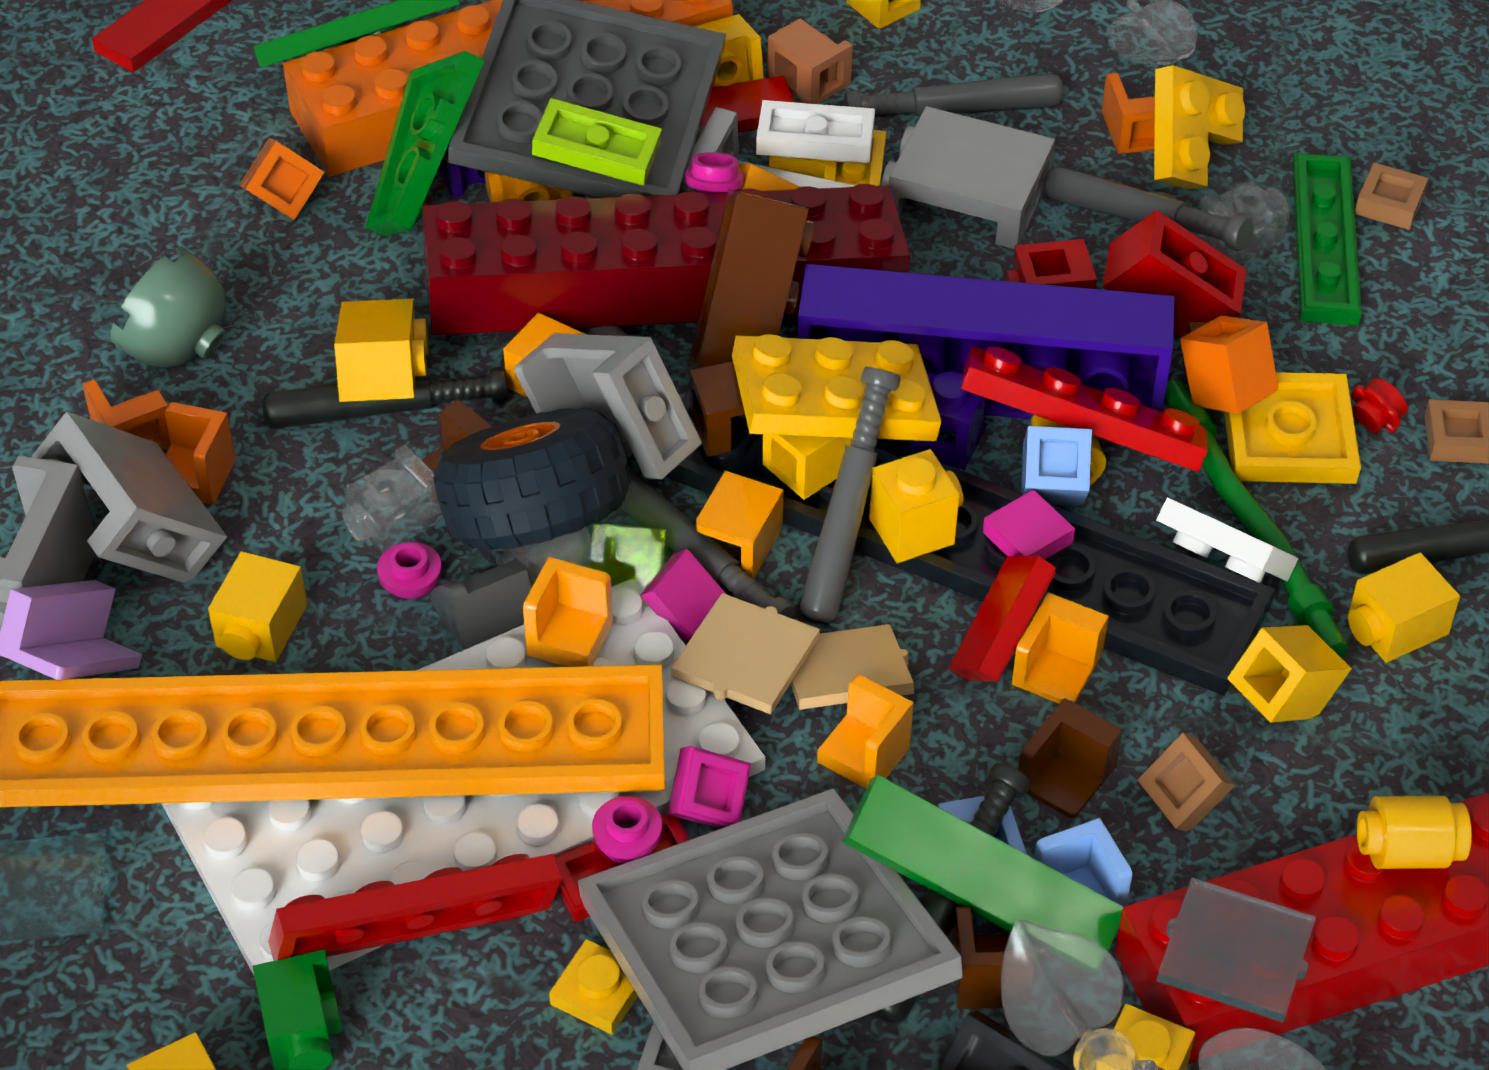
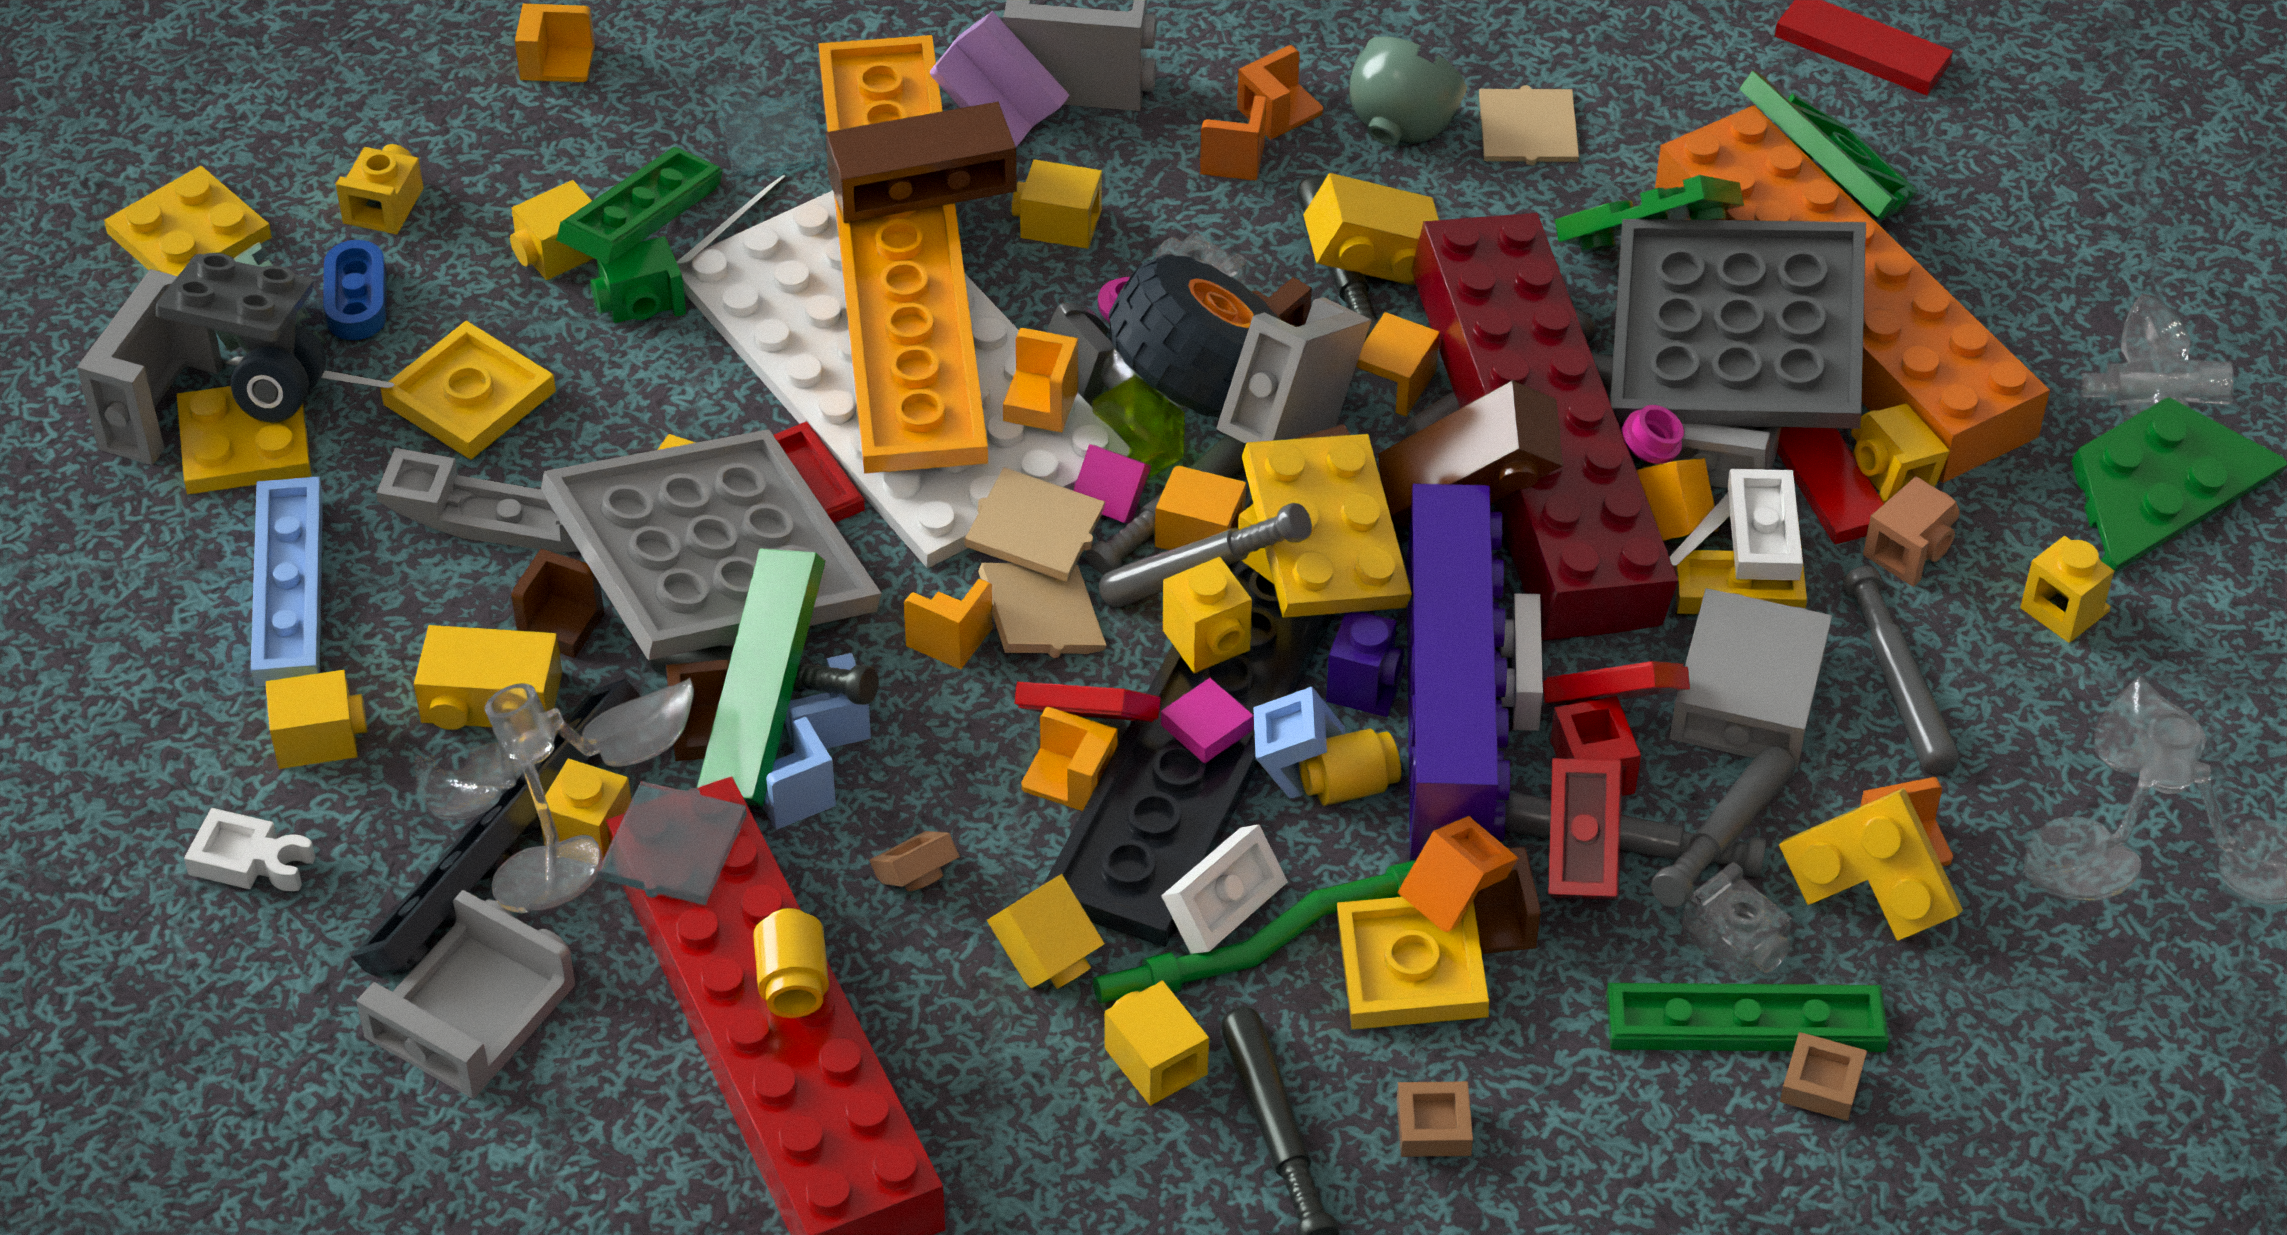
camera: 85 degrees right, 0 degrees up
(153, 511) = (1151, 91): light grey panel -> none
(190, 993) = (639, 205): none -> green tile
(219, 936) = (700, 246): none -> white sticker
(224, 242) = (1528, 125): none -> tan piece
(227, 683) = (921, 162): none -> reddish brown brick
(282, 178) = (1620, 145): orange panel -> none
(415, 909) = (720, 307): red plate -> none
(596, 141) = (1645, 319): lime plate -> none
(627, 843) = (825, 457): dark pink plate -> none
(708, 788) = (879, 512): dark pink tile -> none
(1004, 234) = (1618, 681): none -> red tile
(1063, 399) = (1361, 746): red plate -> none
(1070, 758) = (941, 771): reddish brown panel -> none
(1378, 406) = (1459, 1039): red plate -> none

